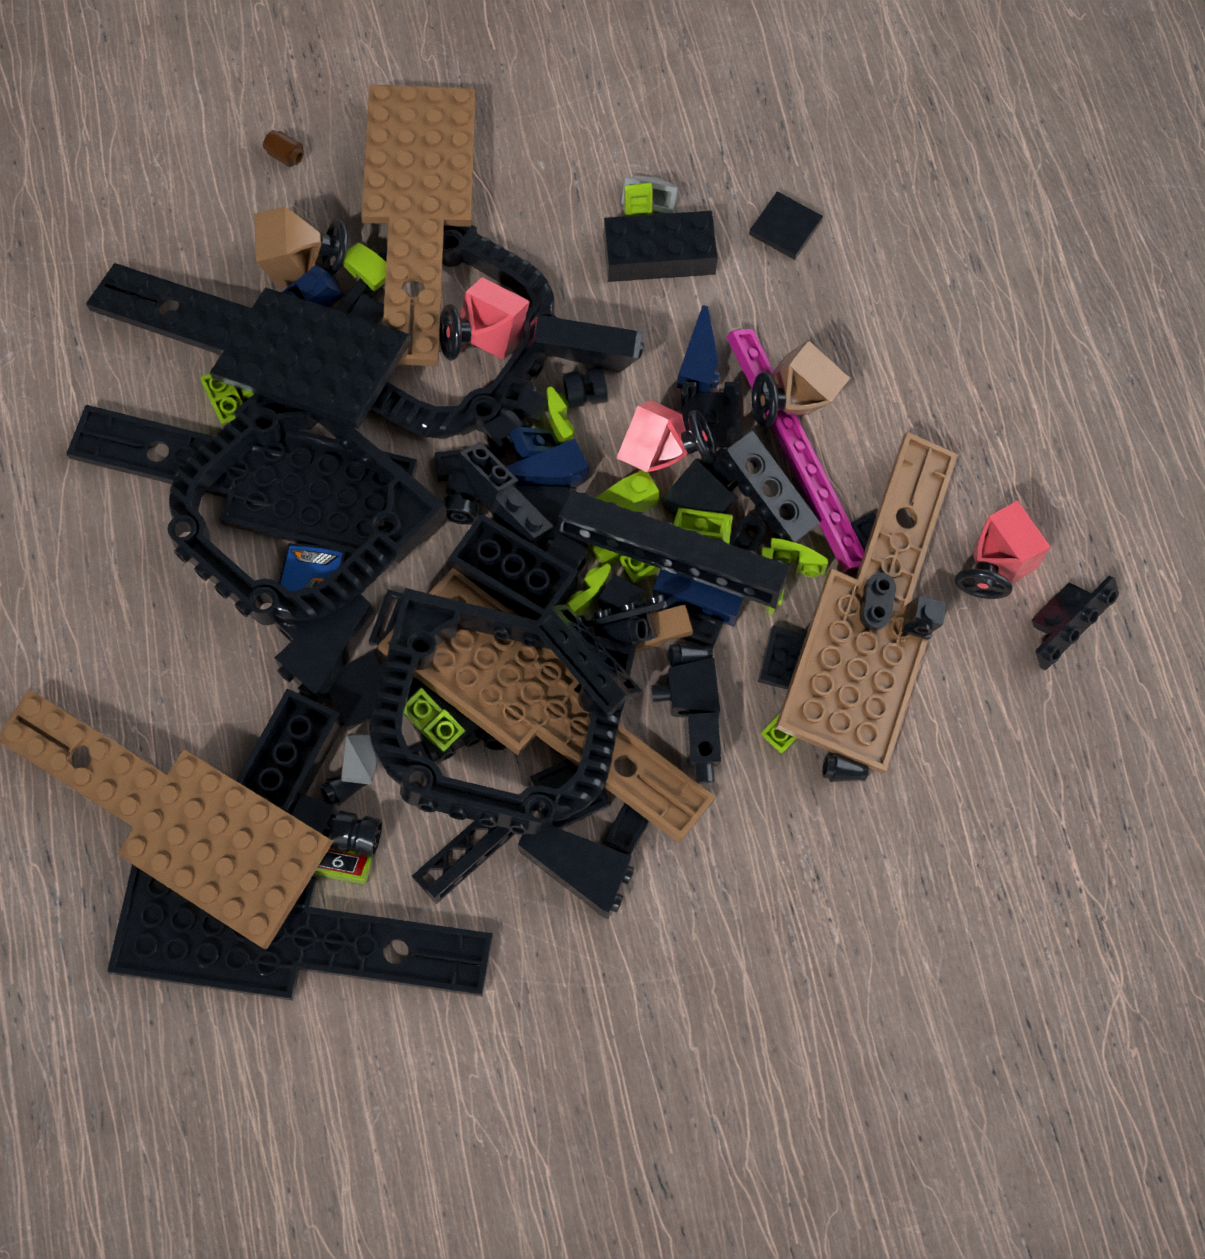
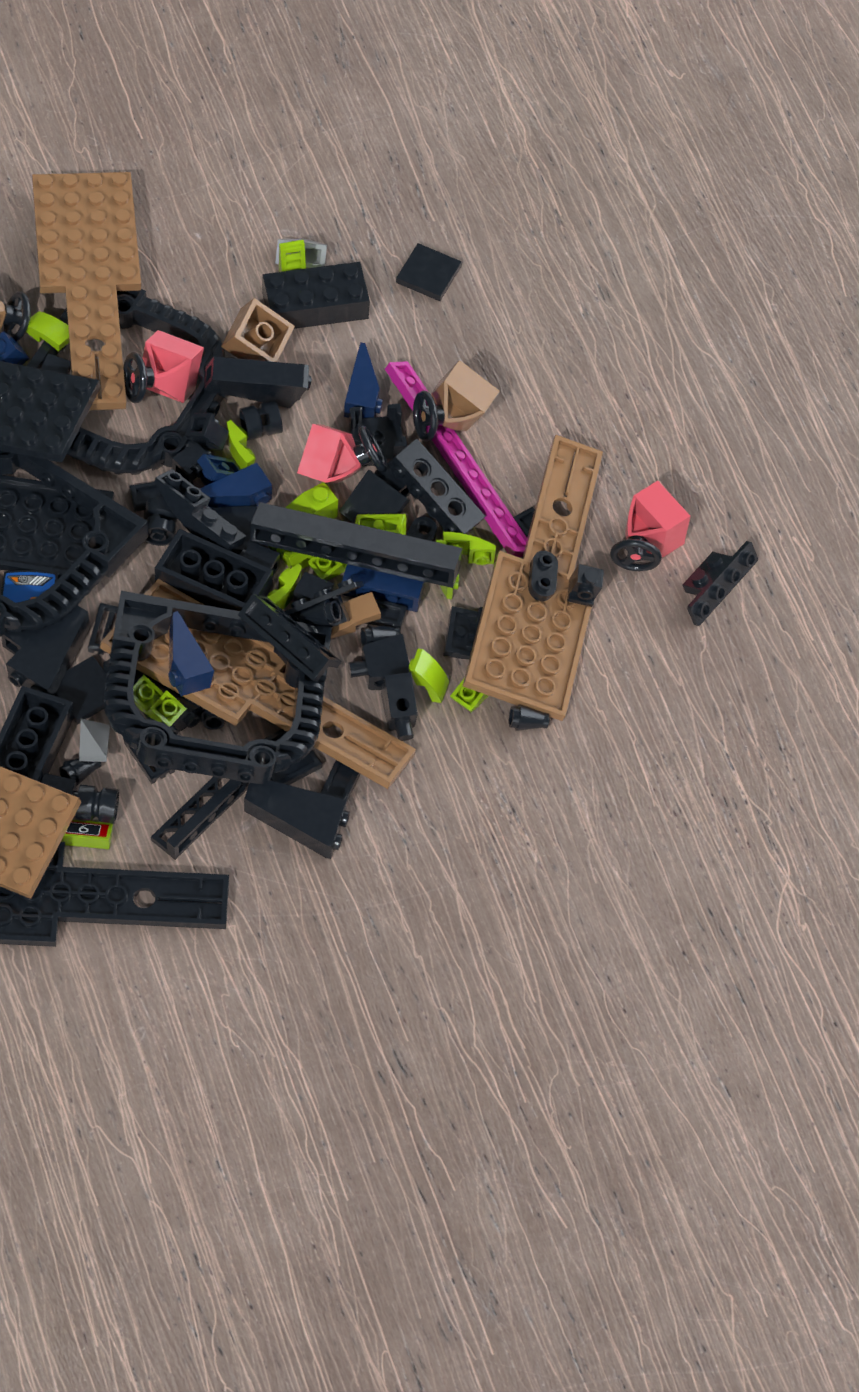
camera: 10 degrees left, 10 degrees down
(467, 691) = (187, 663): none -> dark blue slope
(591, 289) = (257, 333): none -> medium nougat brick
(739, 710) = (429, 674): none -> lime slope

